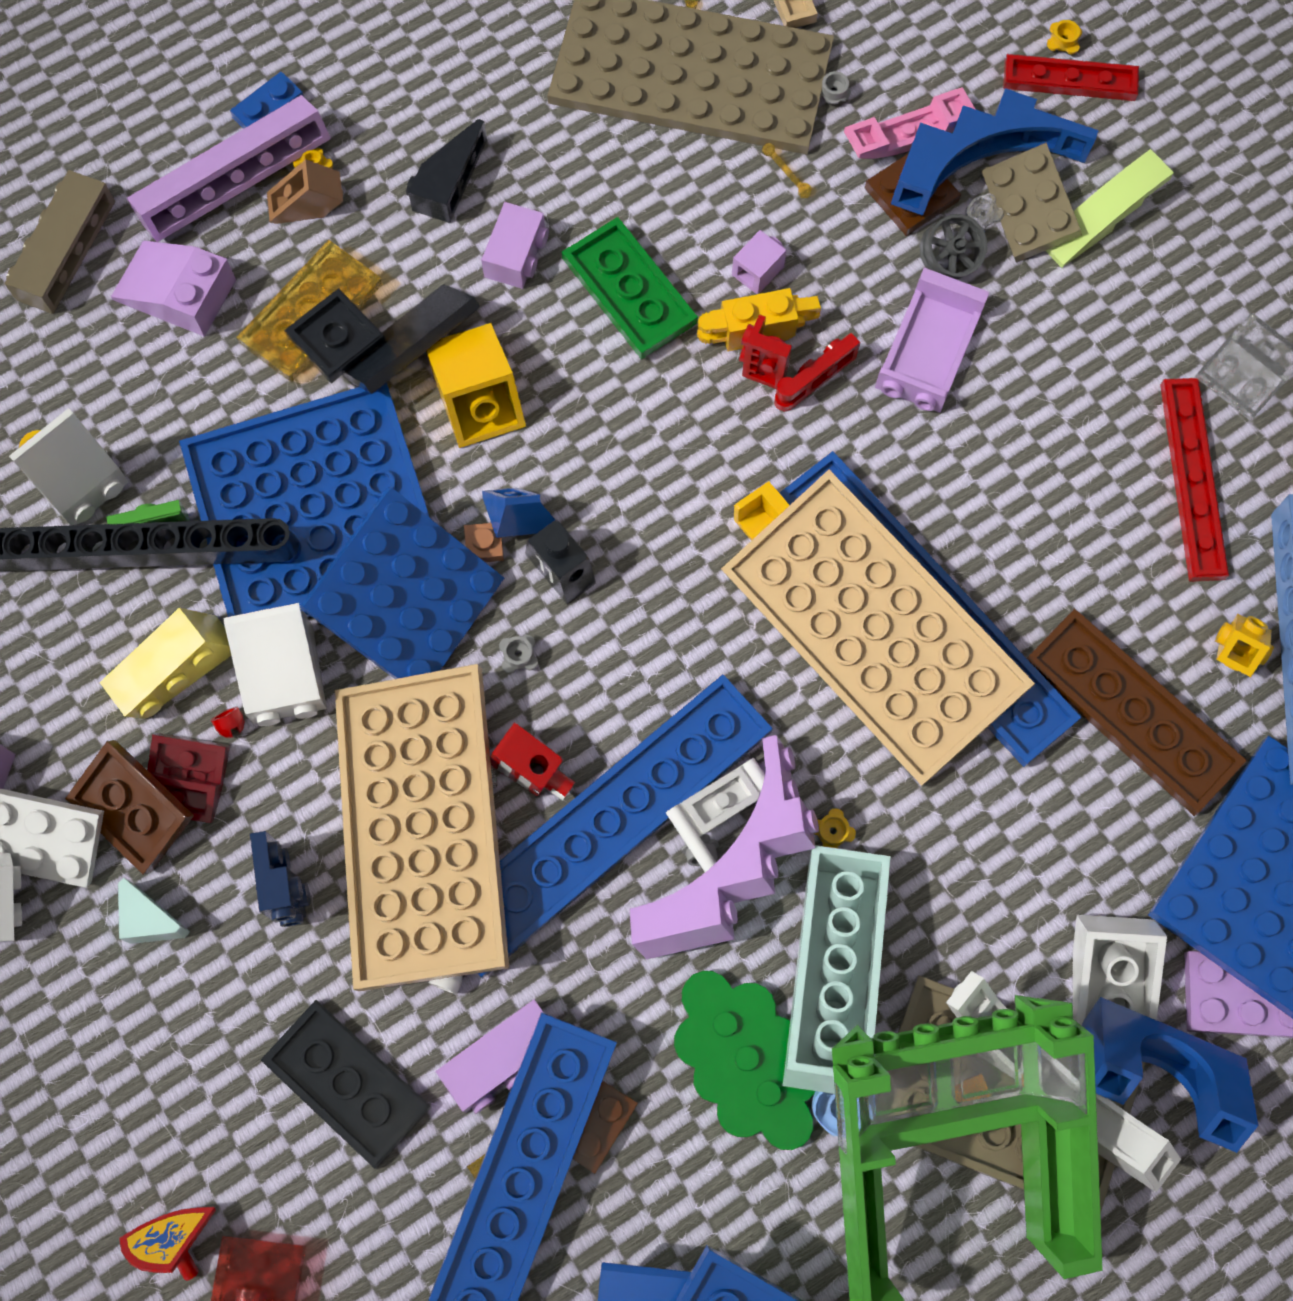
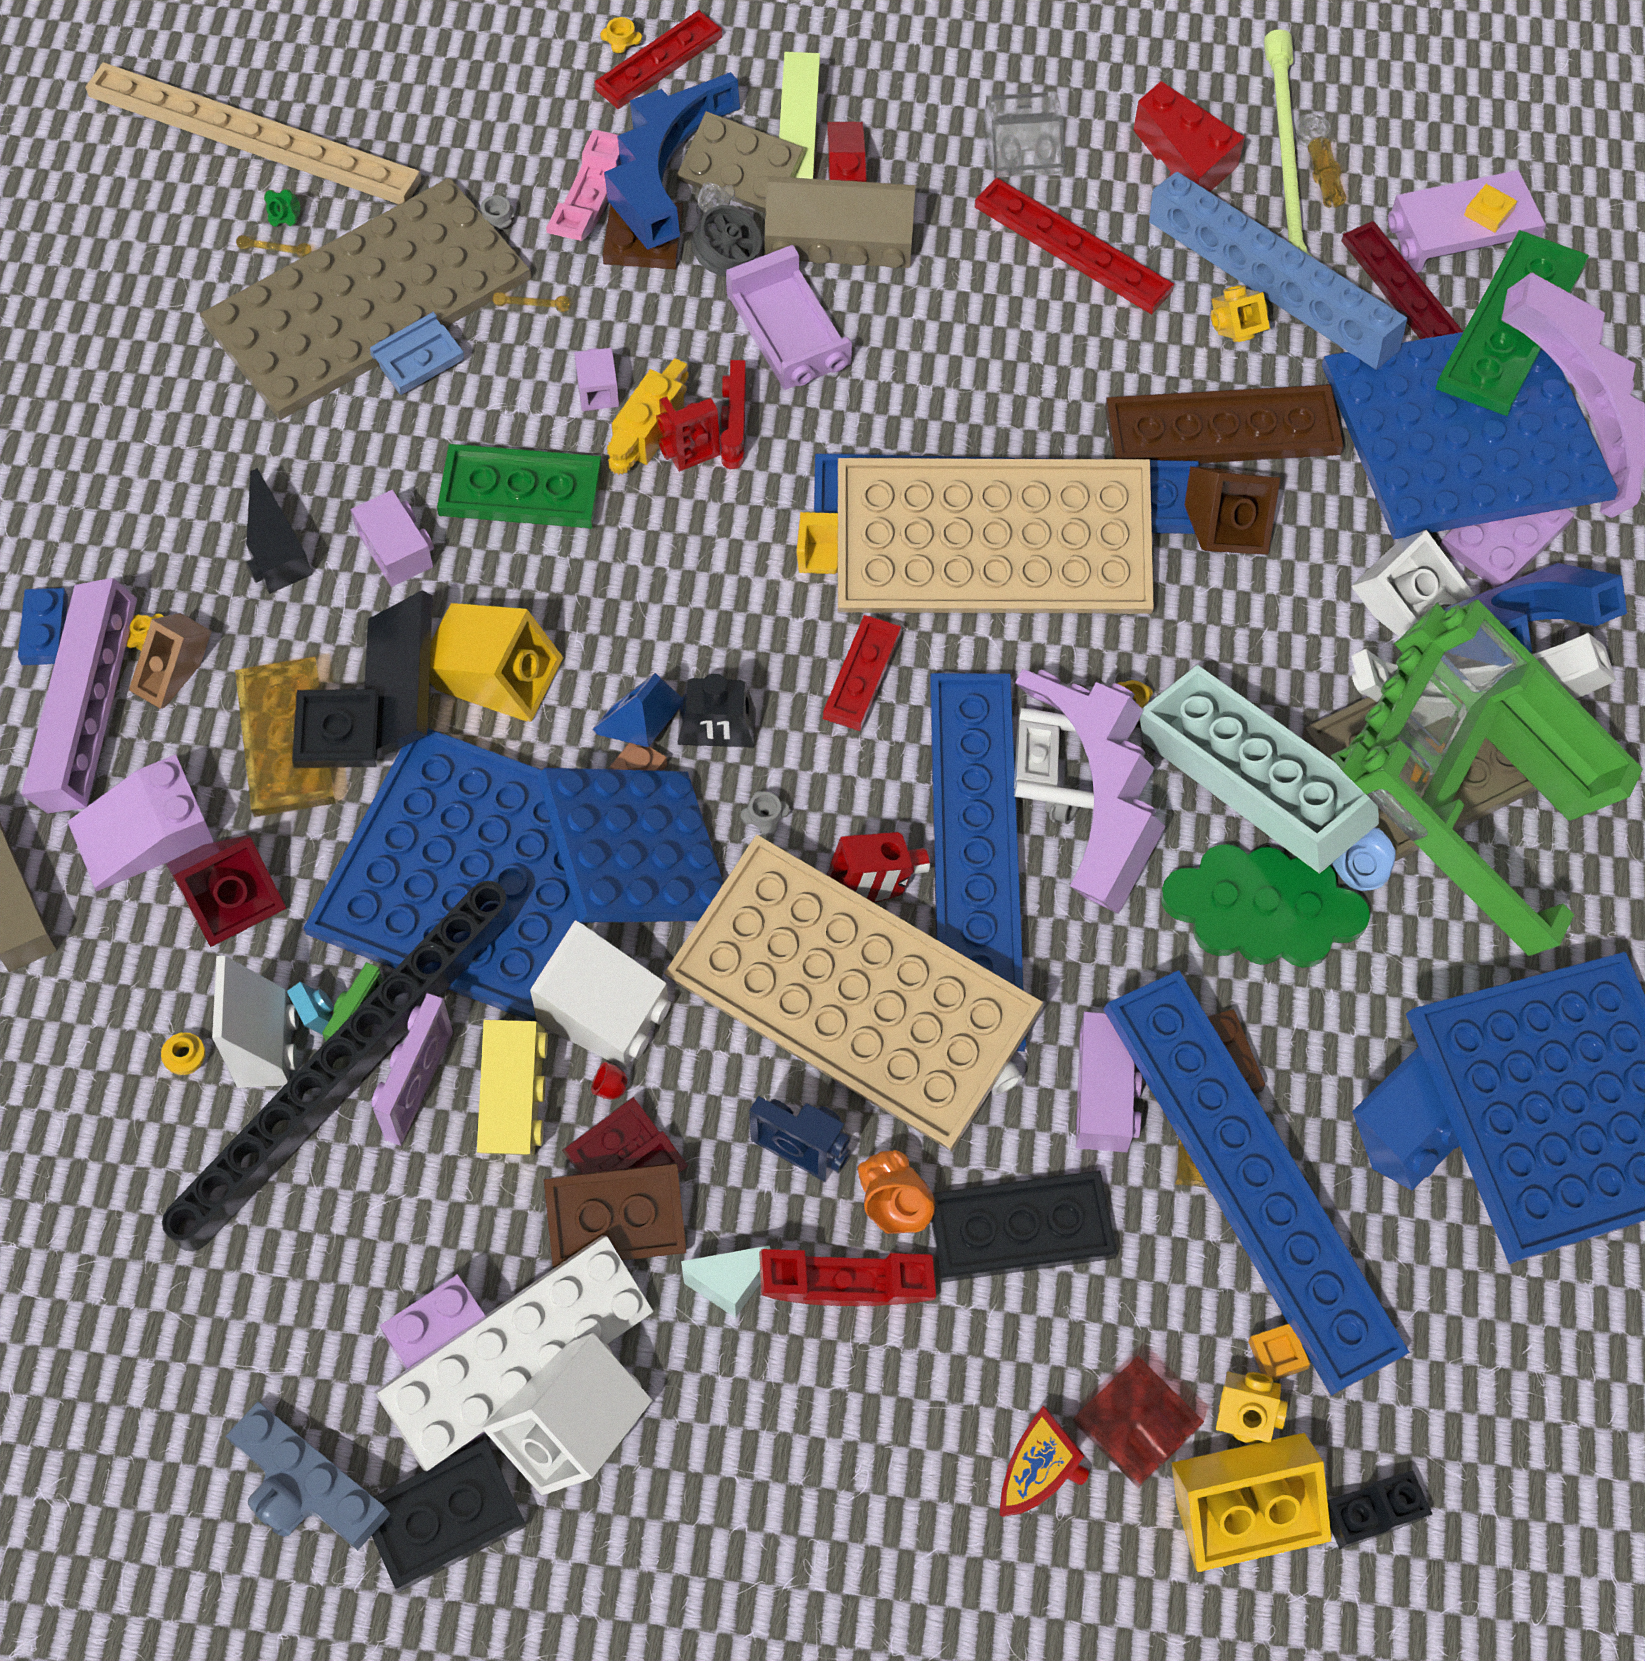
camera: 50 degrees left, 10 degrees down
(124, 593) = (412, 1068): none -> lavender plate
(126, 493) = (312, 1006): none -> medium azure plate
(165, 369) = (226, 887): none -> dark red slope
(204, 994) = (846, 1281): none -> red slope
(291, 977) = (895, 1193): none -> orange hair
(671, 137) = (417, 353): none -> medium blue plate
(685, 627) = (862, 673): none -> red plate
(1042, 307) = (840, 221): none -> dark tan slope
(1058, 774) = (1232, 509): none -> reddish brown slope
(1104, 269) = (846, 151): none -> red slope

